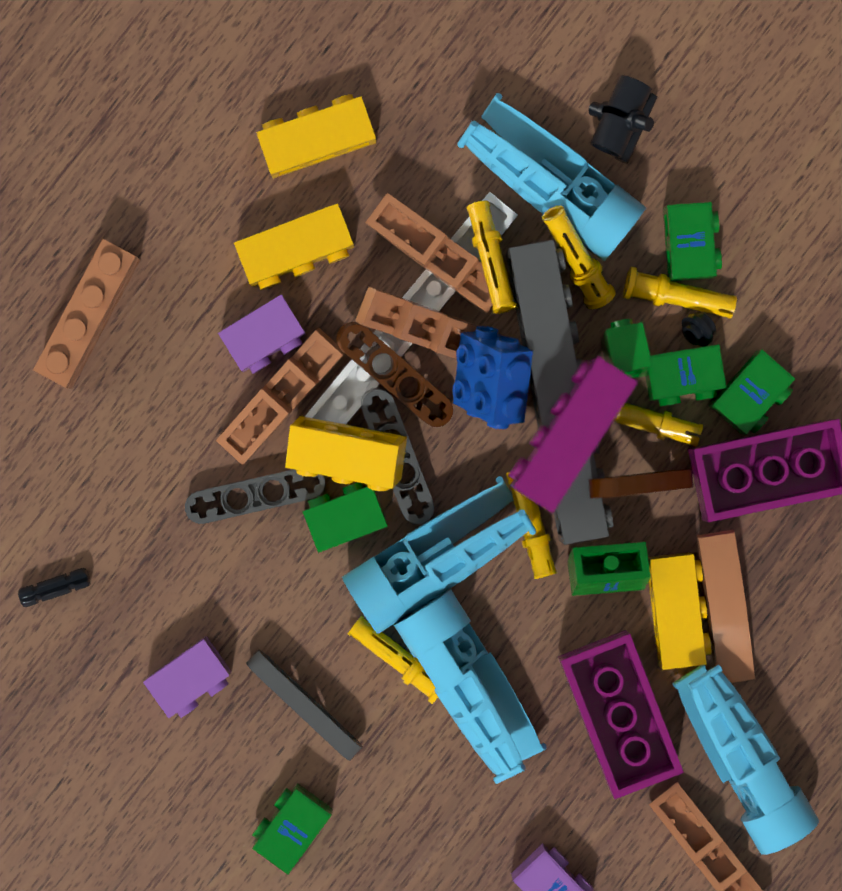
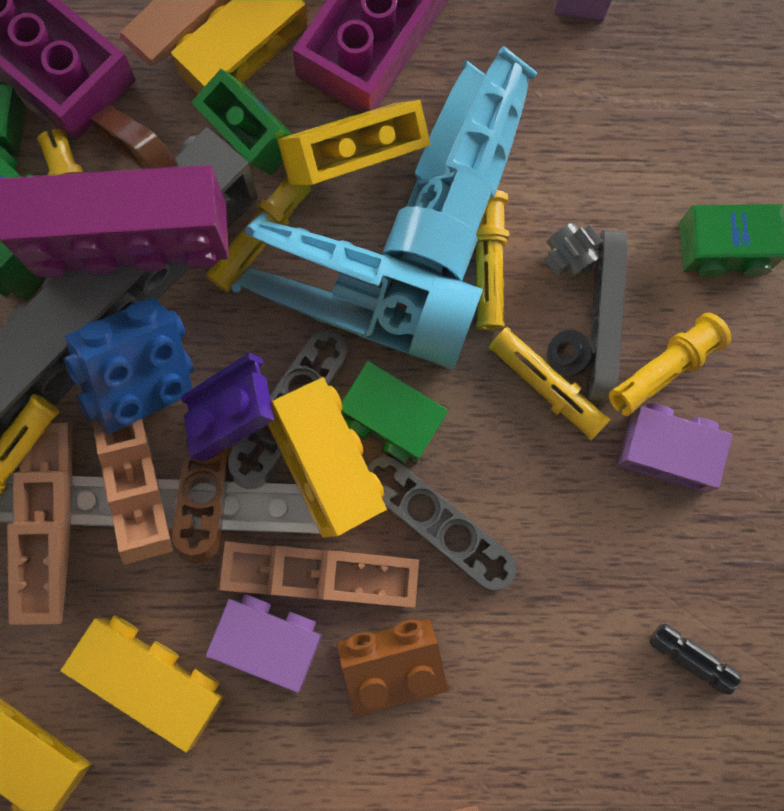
camera: 135 degrees left, 10 degrees down
(191, 400) = (392, 666): none -> dark orange bracket
(242, 733) = (683, 353): none -> yellow pin
(246, 638) = (508, 345): none -> yellow pin
(294, 669) = (582, 353): none -> black plate
(362, 717) = (573, 250): none -> dark grey gear
(419, 416) = (227, 407): none -> dark purple plate
(537, 627) = (354, 142): none -> yellow brick

